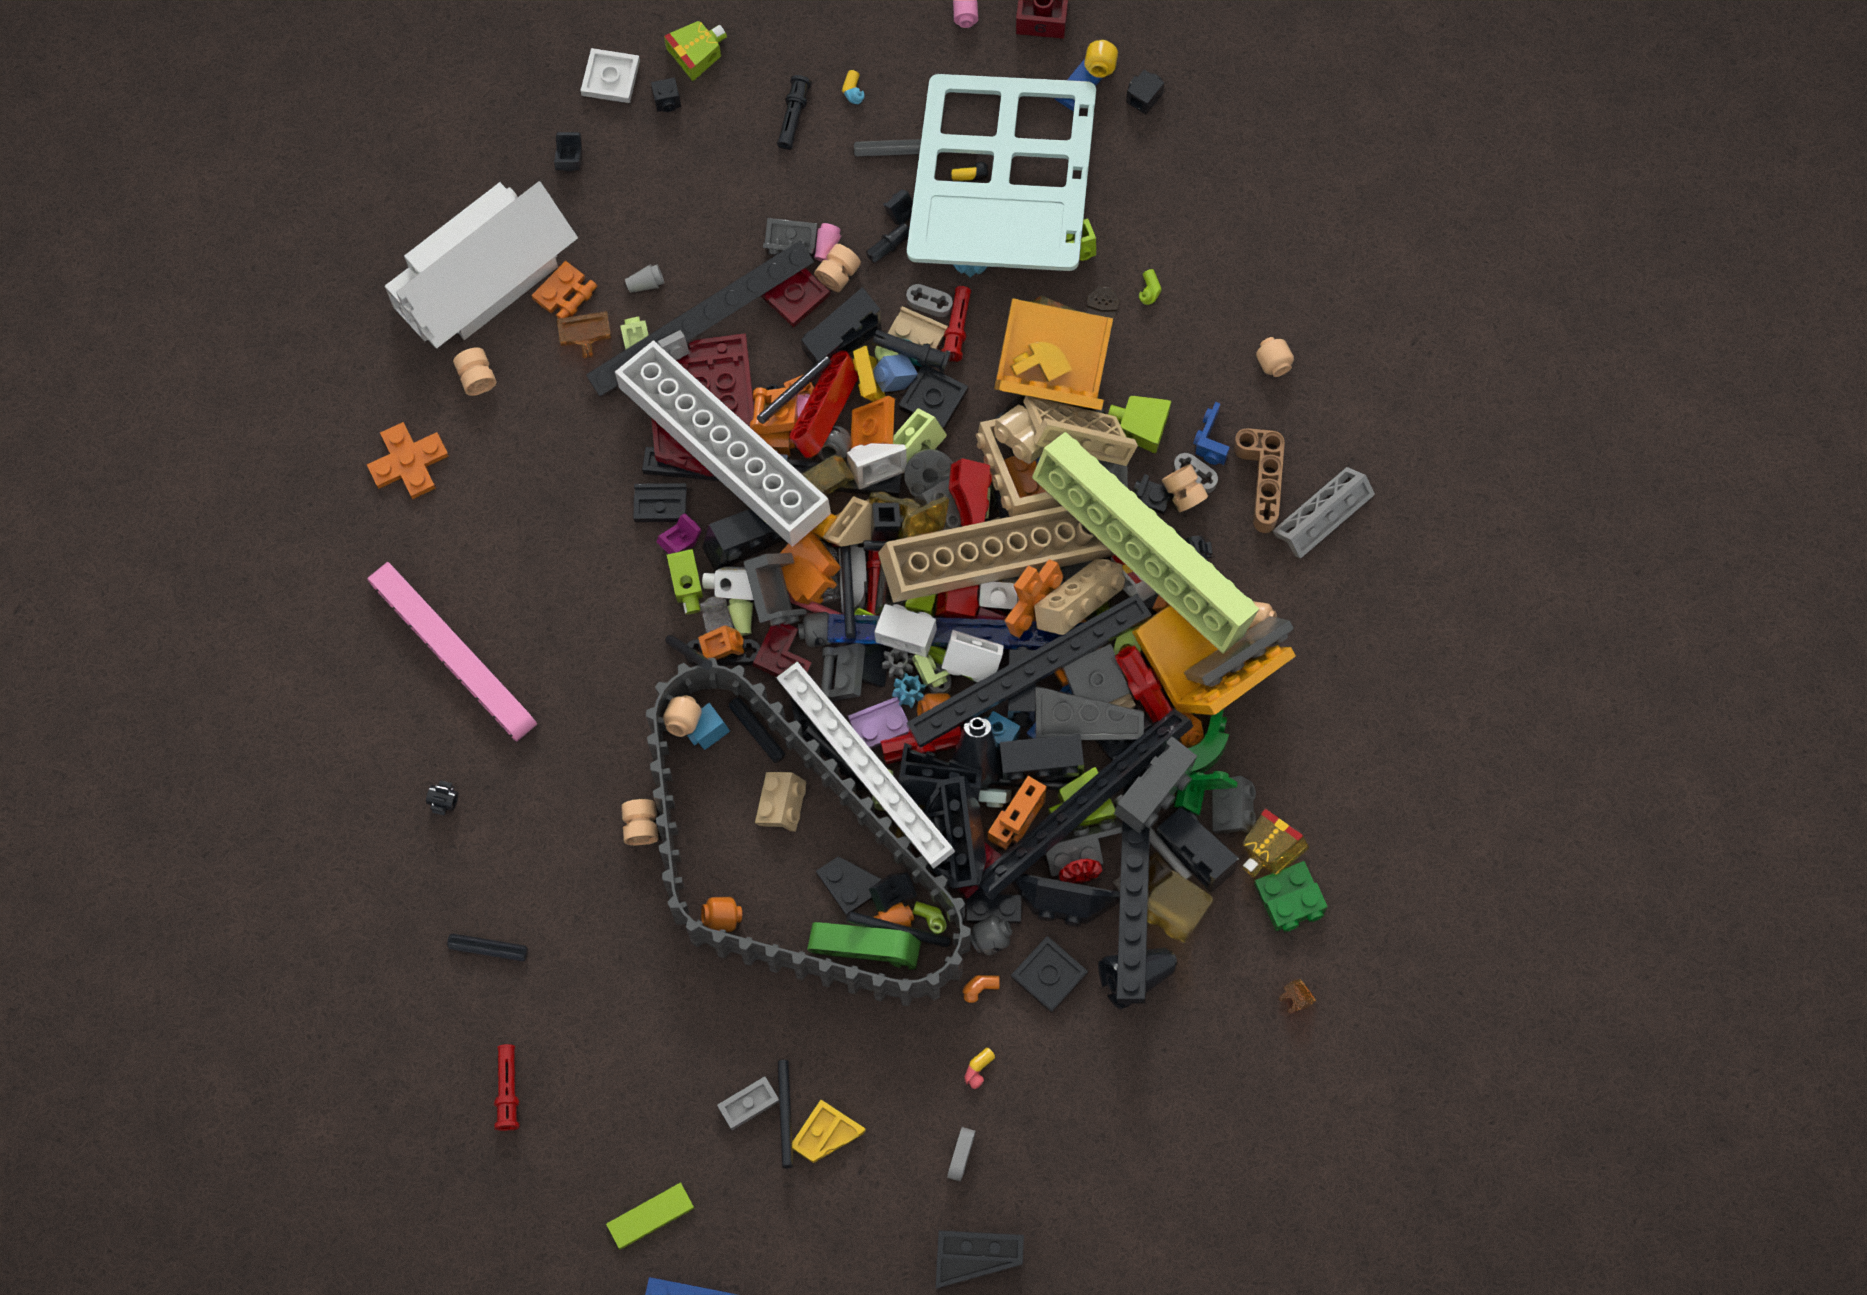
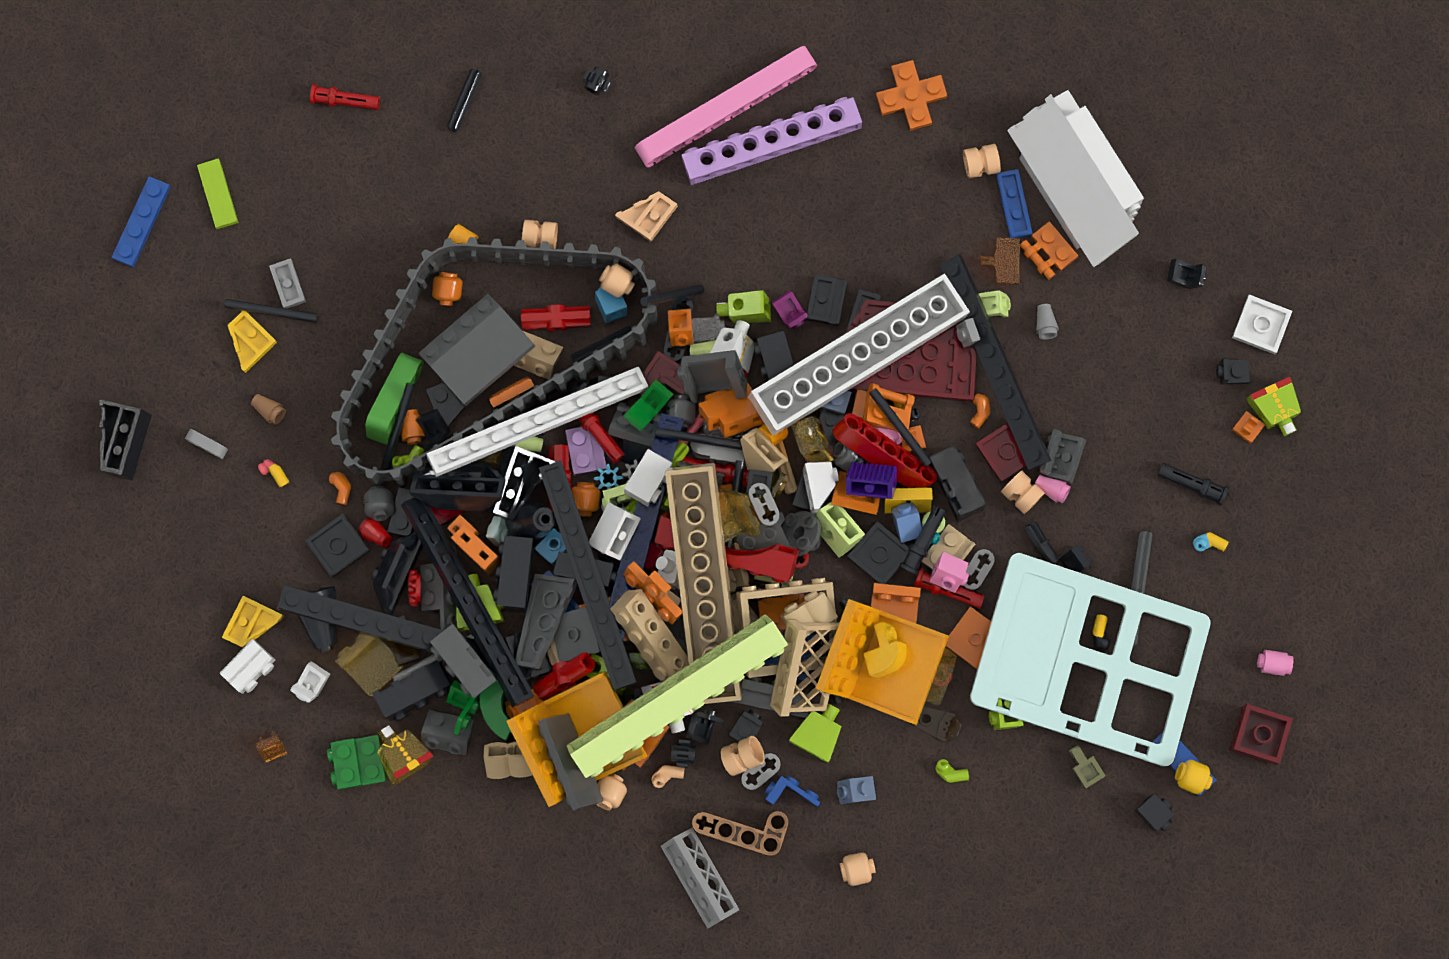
camera: 105 degrees right, 10 degrees up
(446, 516) = (742, 158): none -> lavender brick
(517, 335) = (1014, 204): none -> blue tile
(594, 710) = (648, 215): none -> light nougat wing
(657, 912) = (461, 234): none -> light orange brick
(723, 72) = (1248, 427): none -> orange tile
(733, 786) = (555, 317): none -> red piece
(755, 324) = (983, 410): none -> orange arm
(791, 859) = (476, 349): none -> dark grey slope
(816, 659) = (648, 405): none -> green bracket
(832, 811) = (511, 392): none -> orange plate
(858, 408) = (871, 480): none -> dark purple brick
(866, 701) = (592, 424): none -> red pin
(904, 1091) = (271, 410): none -> medium nougat cone
(907, 499) = (769, 501): none -> light grey beam
(940, 319) = (949, 572): none -> bright pink brick
(982, 372) = (896, 600): none -> orange bracket
(1000, 286) = (969, 637): none -> orange plate
(1026, 931) = (375, 532): none -> red cone
(1115, 160) = (1088, 769): none -> olive plate
(1160, 1054) = (250, 622): none -> yellow wing
(1193, 375) = (856, 790): none -> sand blue bracket
(1213, 1042) = (248, 667): none -> white brick
(1214, 967) = (310, 682): none -> white bracket
(1226, 570) = (665, 773): none -> light nougat arm
(1249, 732) = (505, 761): none -> tan brick

